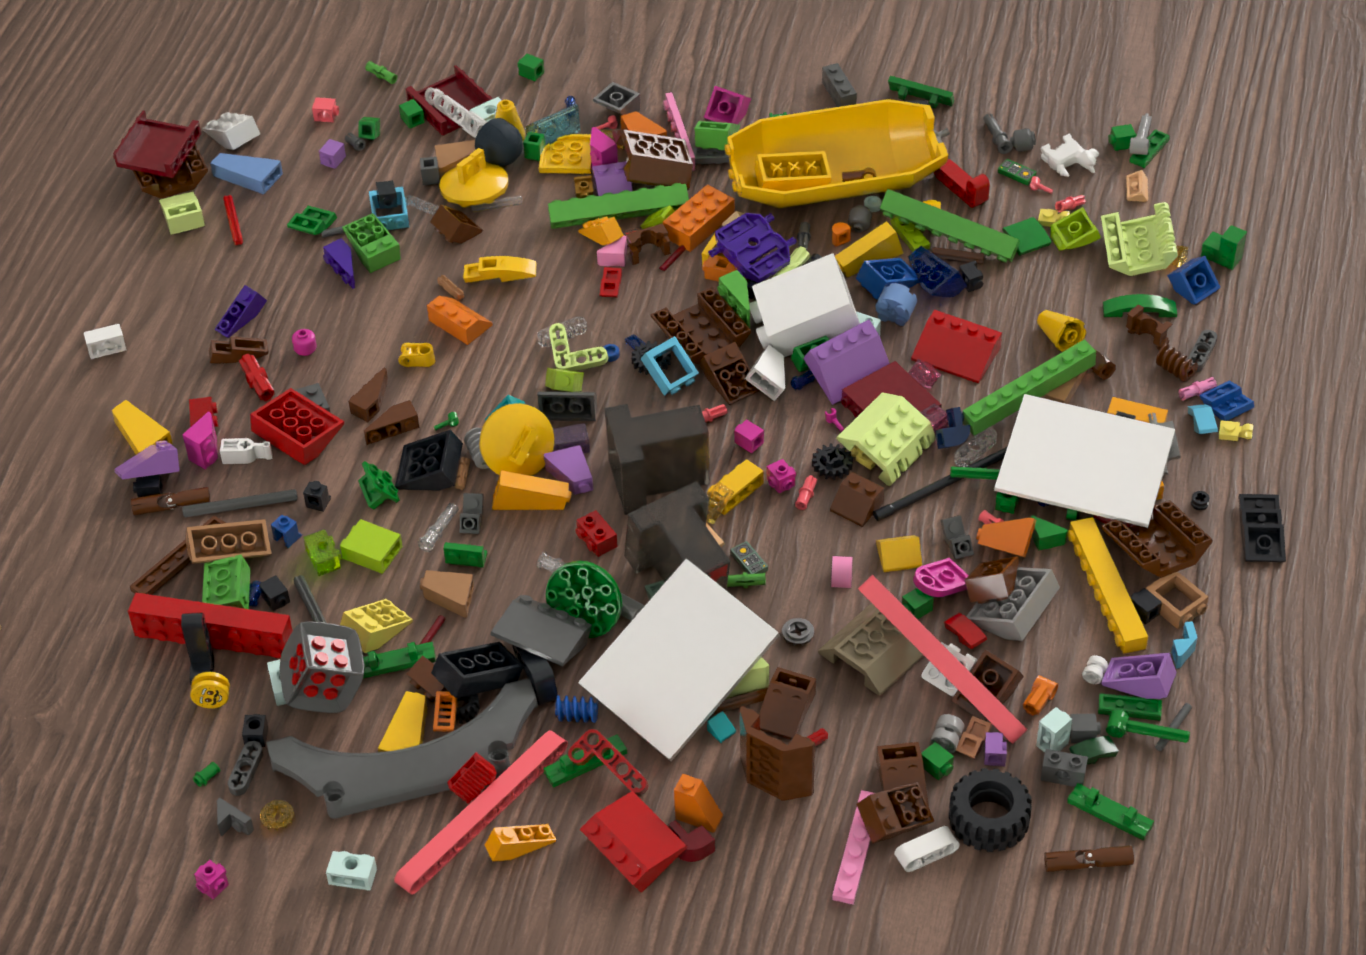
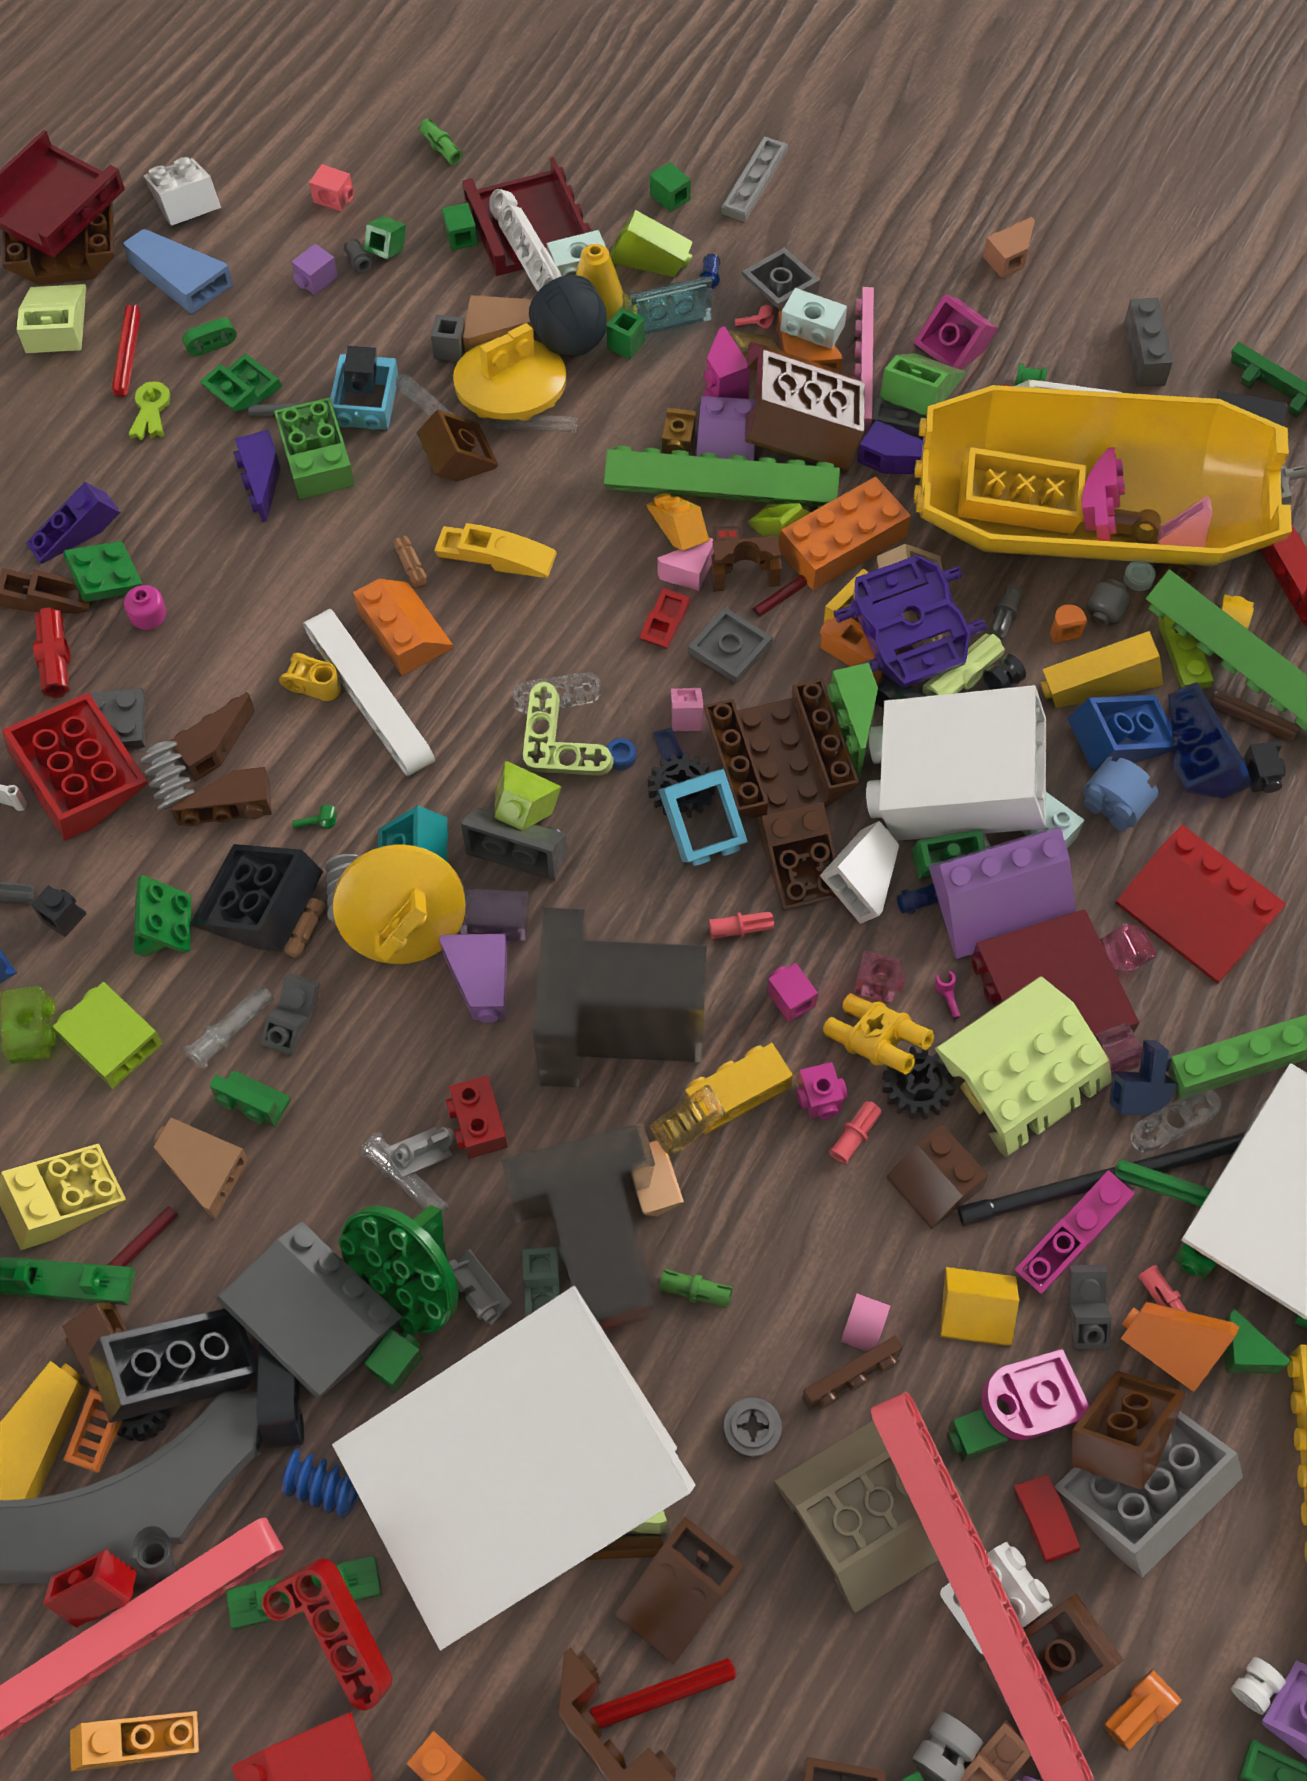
camera: 15 degrees right, 15 degrees up
(261, 241) = (151, 399): none -> lime piece
(269, 331) = (102, 570): none -> green plate
(282, 201) = (209, 336): none -> green beam
(353, 416) = (166, 773): none -> light grey piece
(454, 355) = (369, 693): none -> white beam
(529, 493) = (395, 1005): light orange slope -> none
(533, 99) = (650, 247): none -> lime slope
(567, 155) = (671, 361): yellow plate -> none
(572, 552) = (420, 1150): none -> light grey hinge
(579, 53) = (754, 179): none -> light grey tile
(593, 648) = (394, 1359): none -> green brick
(641, 323) = (687, 709): none -> bright pink slope
(643, 113) = (813, 318): none -> light aqua brick
(653, 286) = (730, 645): none -> dark grey plate
(711, 172) = (889, 450): none -> dark purple slope
(720, 727) = (557, 1599): teal slope -> none
(743, 57) = (1008, 249): none -> nougat slope
(748, 559) = (716, 1244): tile -> none
(794, 419) = (879, 964): none -> clear pink brick
(802, 442) = (878, 1033): none -> yellow pin
(839, 163) = (1103, 495): none -> dark pink slope
(841, 595) = (853, 1374): none -> reddish brown plate
(894, 166) = (1189, 526): none -> slope
(939, 506) = (1074, 1232): none -> dark pink slope

